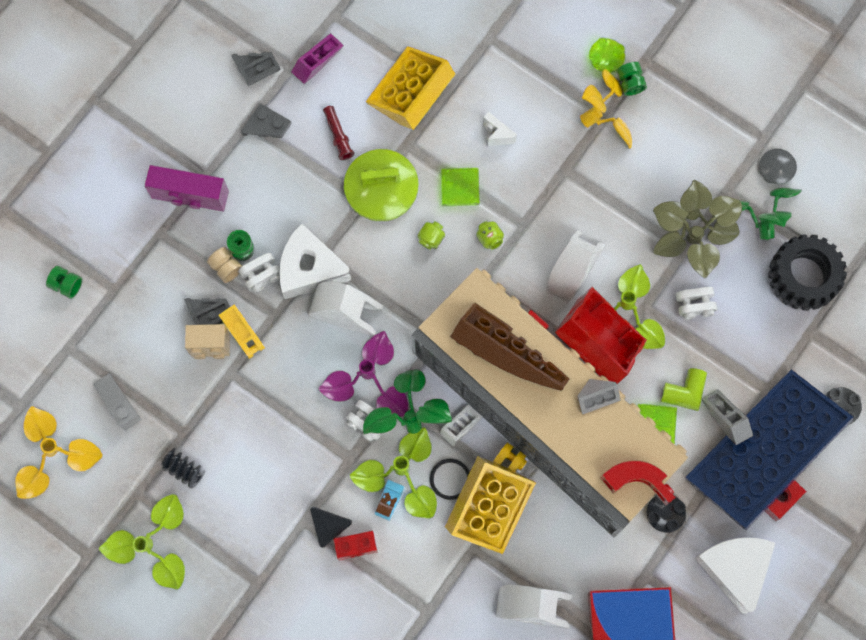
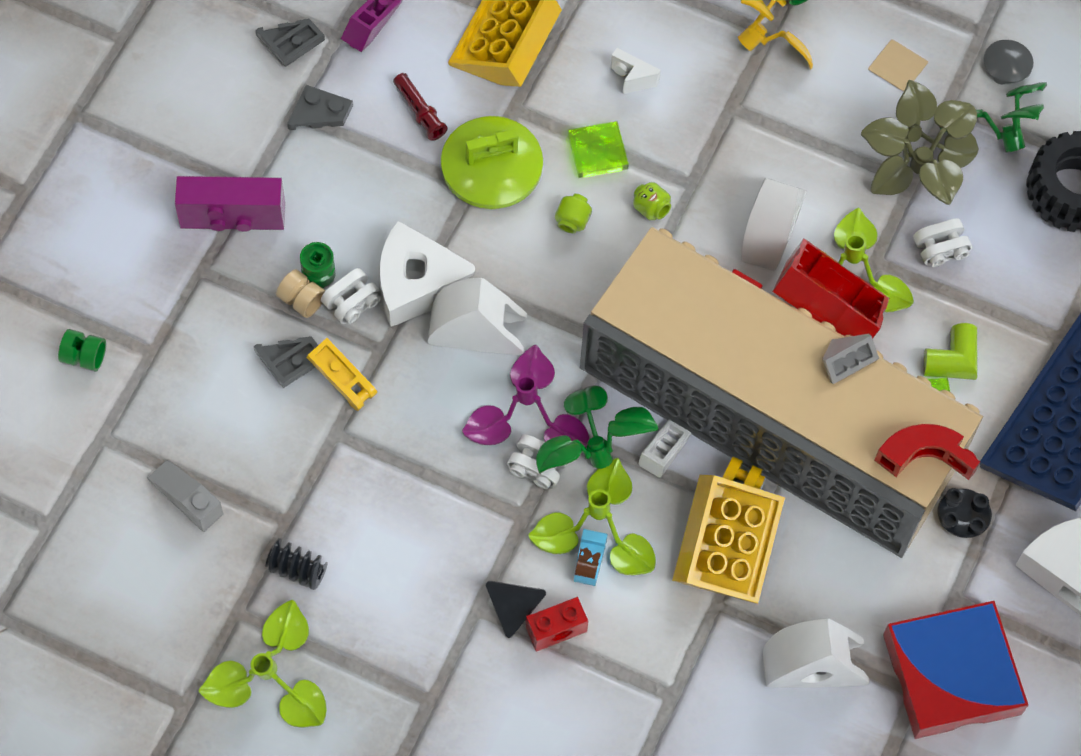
camera: 15 degrees left, 10 degrees down
(39, 425) = (83, 542): yellow plant -> none
(207, 341) = (299, 392): tan piece -> none
(434, 470) = (640, 518): black tyre -> none
(496, 344) = (698, 312): reddish brown wedge -> none
(695, 155) = (897, 64): none -> tan sticker
(728, 416) = (1021, 376): light grey slope -> none

